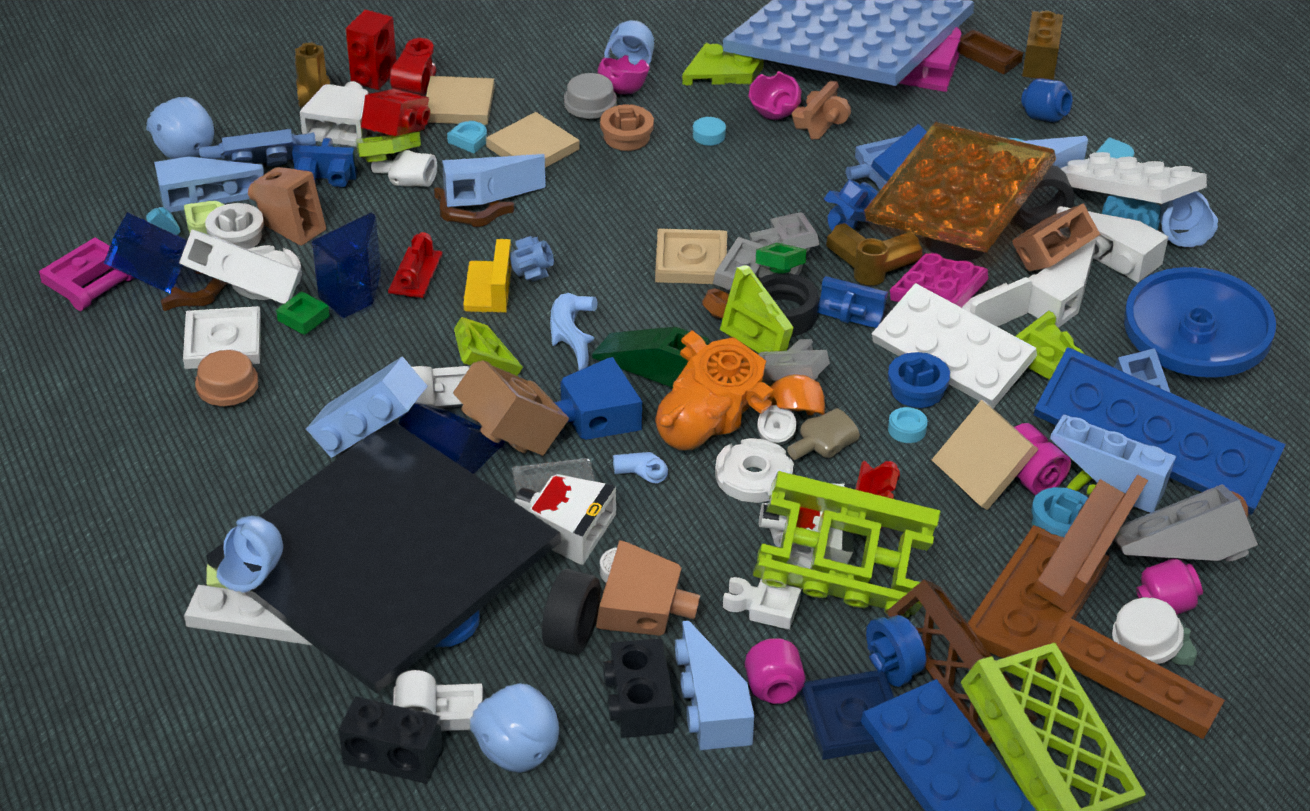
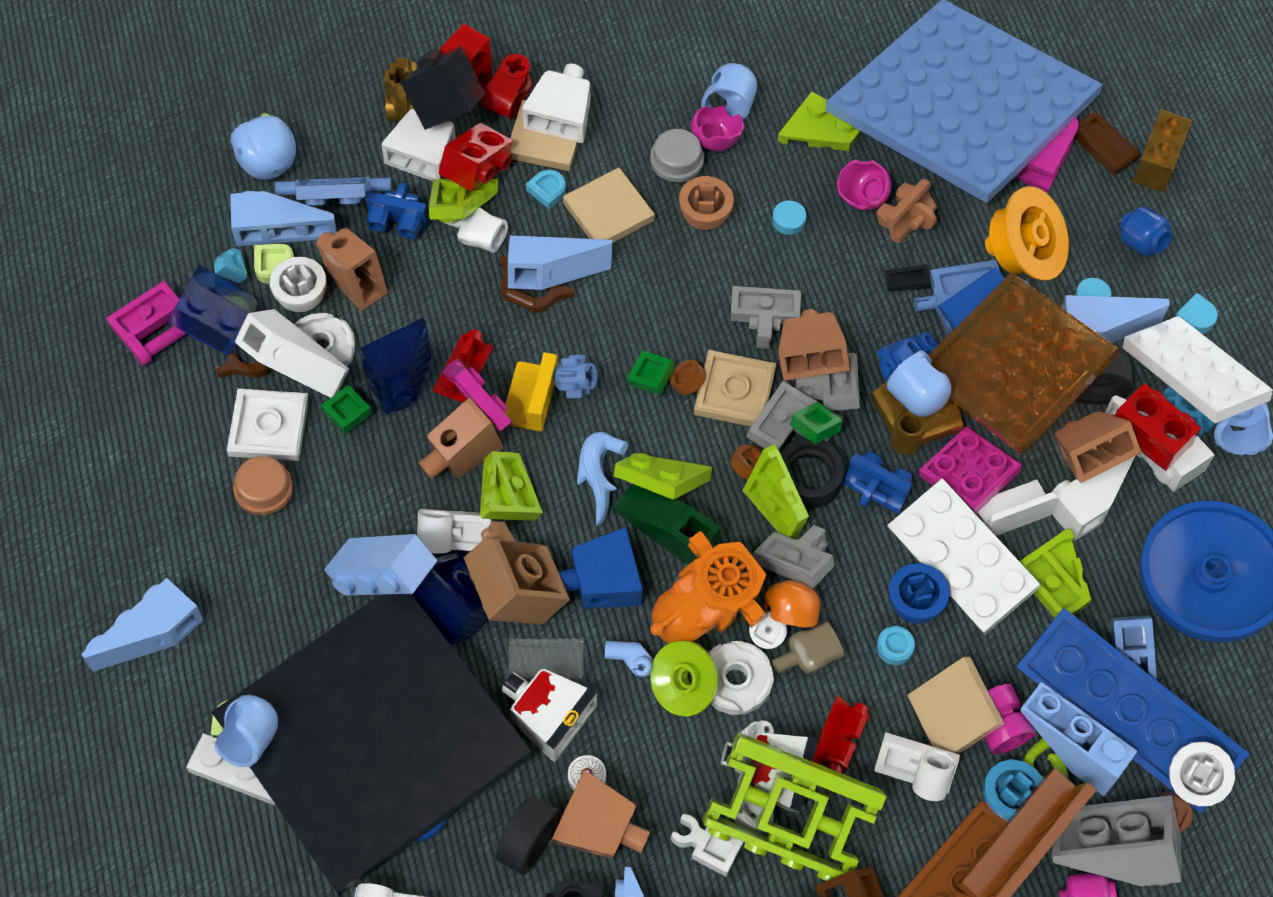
camera: 10 degrees right, 20 degrees up
(123, 504) = (152, 625): none -> light blue slope
(354, 54) = (442, 87): none -> black plate
(428, 314) = (461, 441): none -> nougat torso
(438, 271) = (471, 384): none -> dark pink plate
(467, 70) = (559, 104): none -> white torso
(605, 250) = (651, 372): none -> green plate
(642, 249) = (687, 377): none -> dark orange tile
(645, 317) = (662, 475): none -> lime wing
(687, 467) = (671, 680): none -> lime dish
(705, 194) = (764, 309): none -> light grey hinge
(760, 206) = (812, 346): none -> nougat torso
(835, 160) = (908, 278): none -> black piece
(873, 212) = (919, 385): none -> light blue helmet
(939, 99) = (1029, 235): none -> light orange piece
(963, 506) = (923, 765): none -> white plate
(1116, 215) = (1152, 429): none -> red brick
(1245, 462) = (1201, 773): none -> white piece

